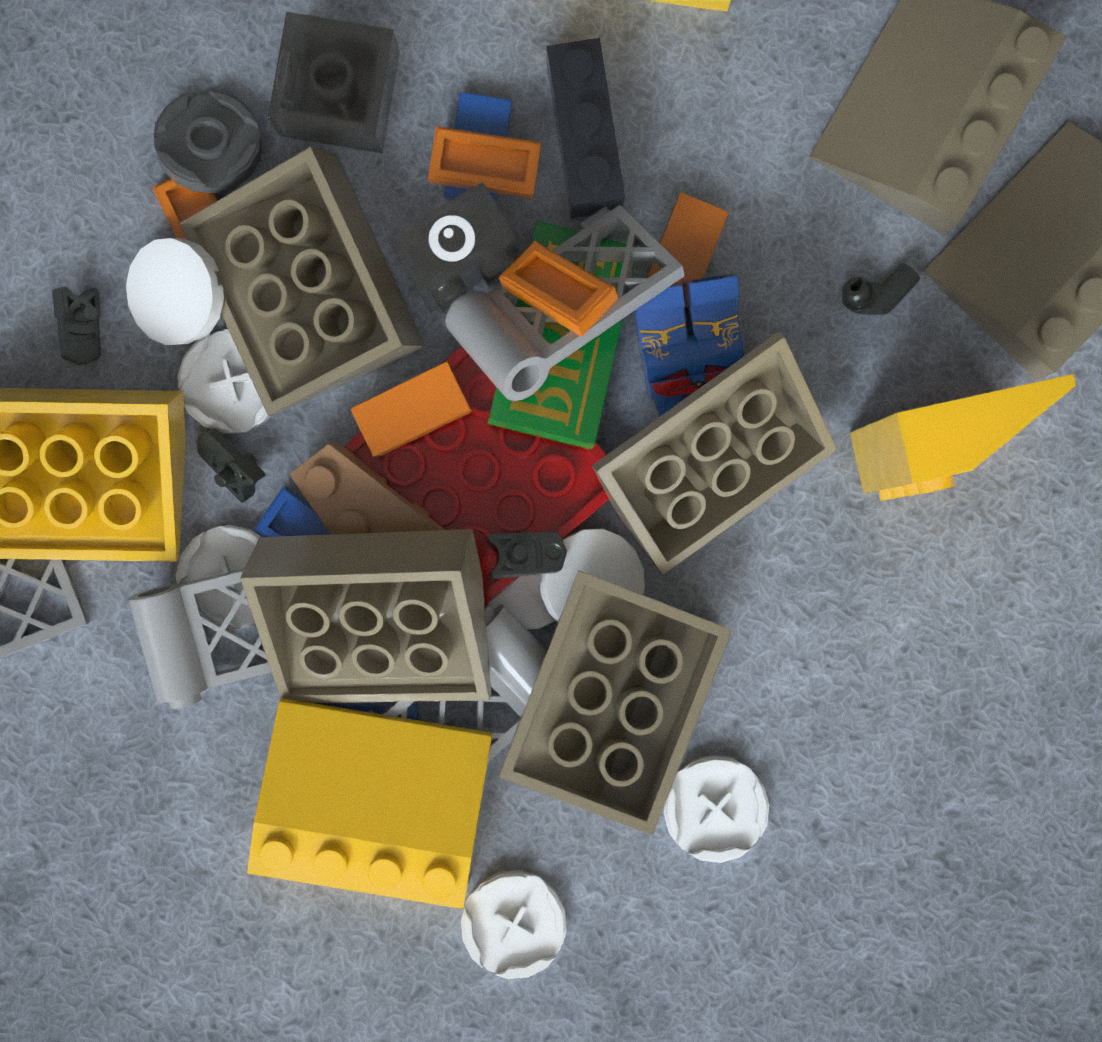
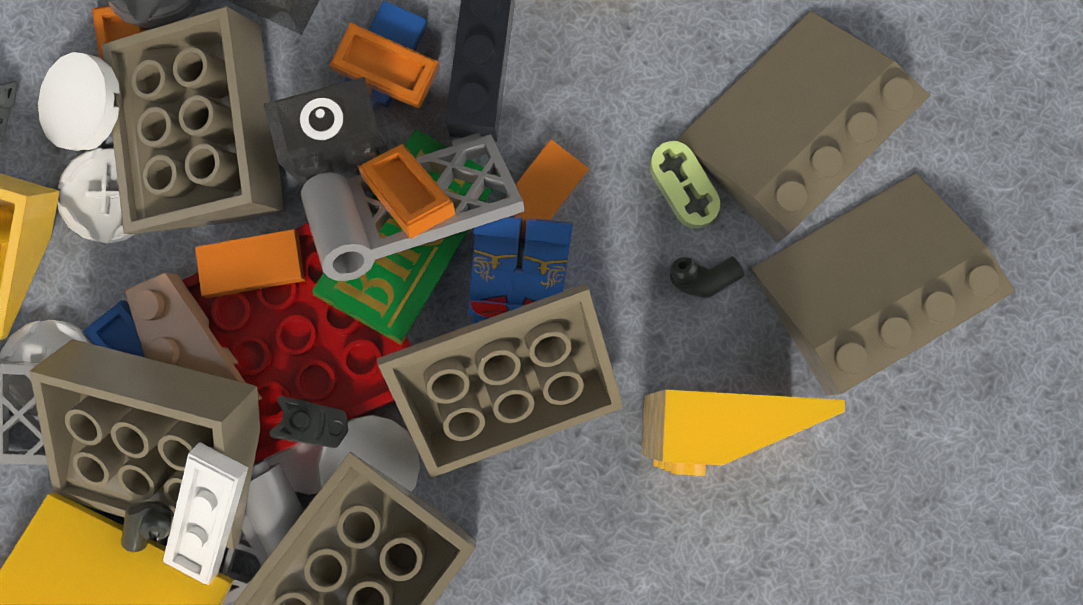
camera: 20 degrees right, 5 degrees down
(233, 468) = (81, 273): pearl dark grey piece -> none
(394, 694) = (143, 518): none -> pearl dark grey arm
(456, 670) = (204, 513): none -> white tile
(841, 192) = (694, 178): none -> yellowish green beam

